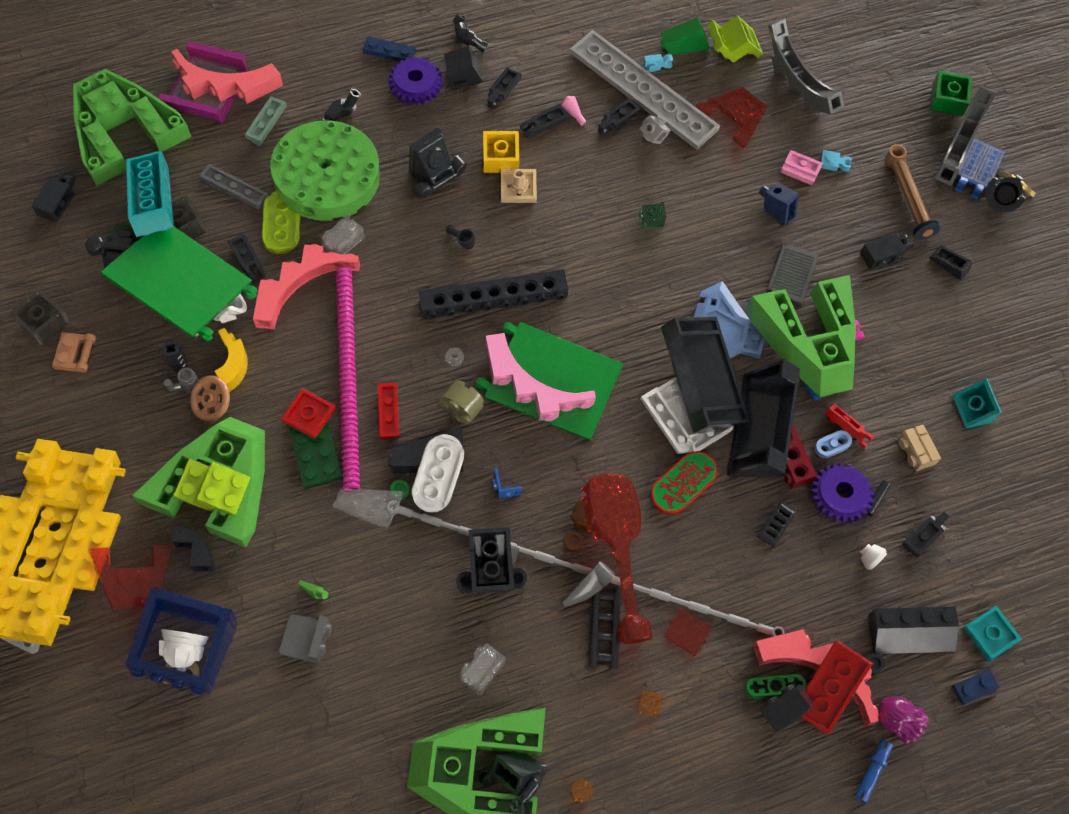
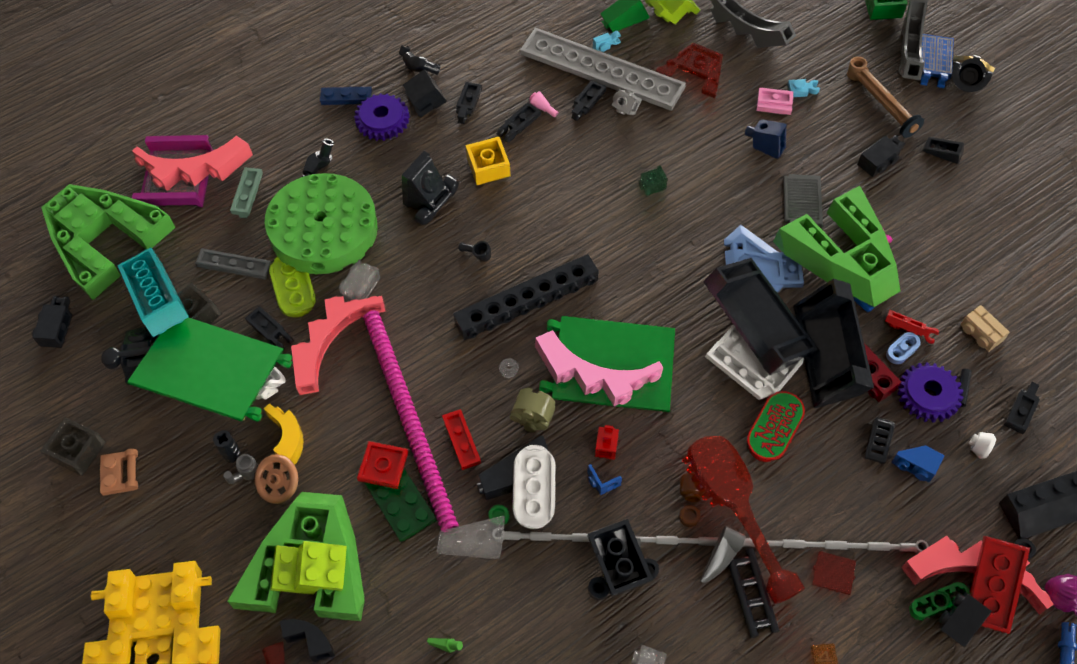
camera: 10 degrees left, 5 degrees down
(518, 181) = (512, 184): tan plate -> none
(520, 452) = (607, 442): none -> red brick
(806, 554) = (919, 461): none -> blue slope
(977, 404) = (1021, 272): teal slope -> none

